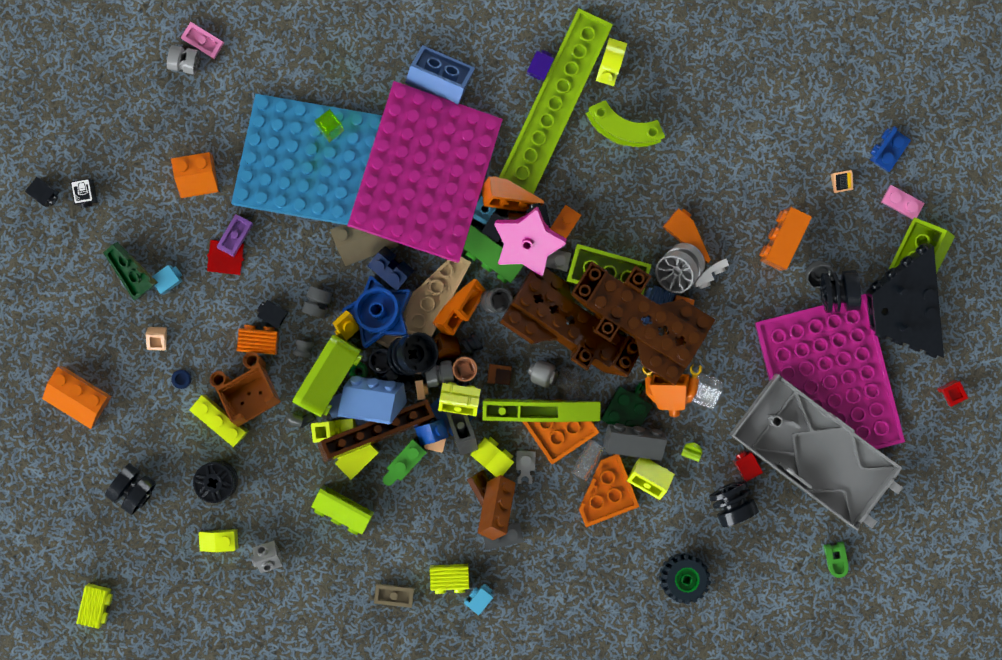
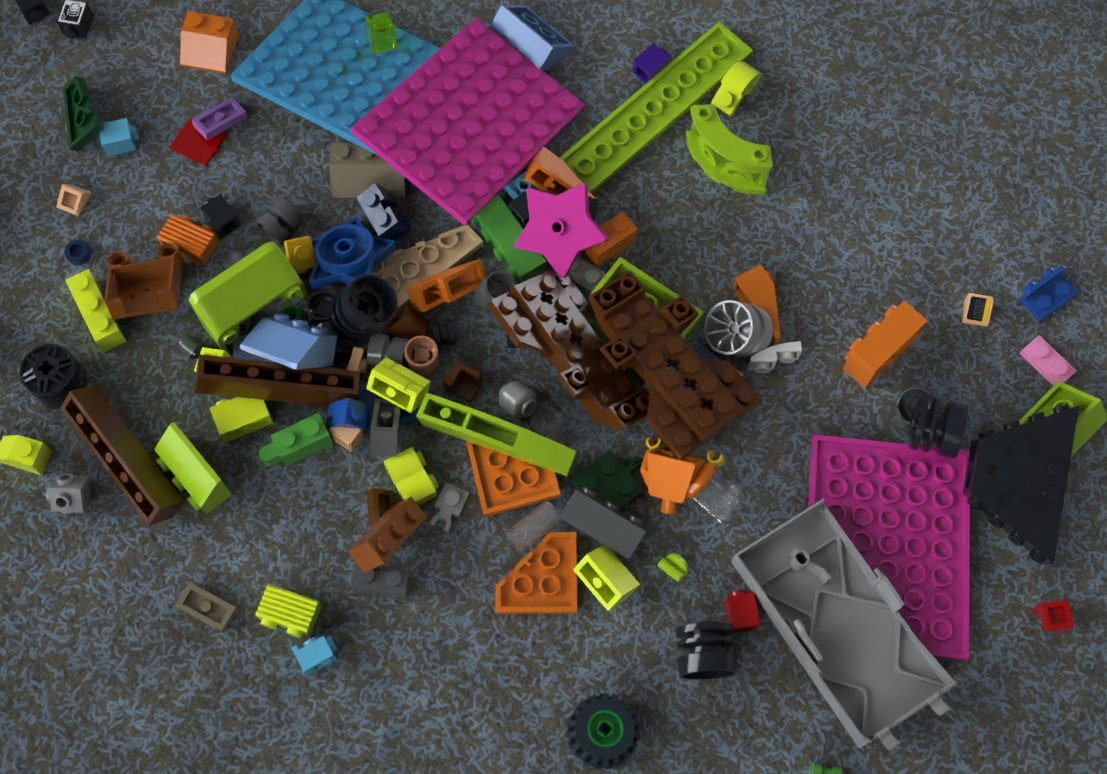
camera: 20 degrees right, 20 degrees down
(289, 517) = (122, 455): none -> reddish brown brick

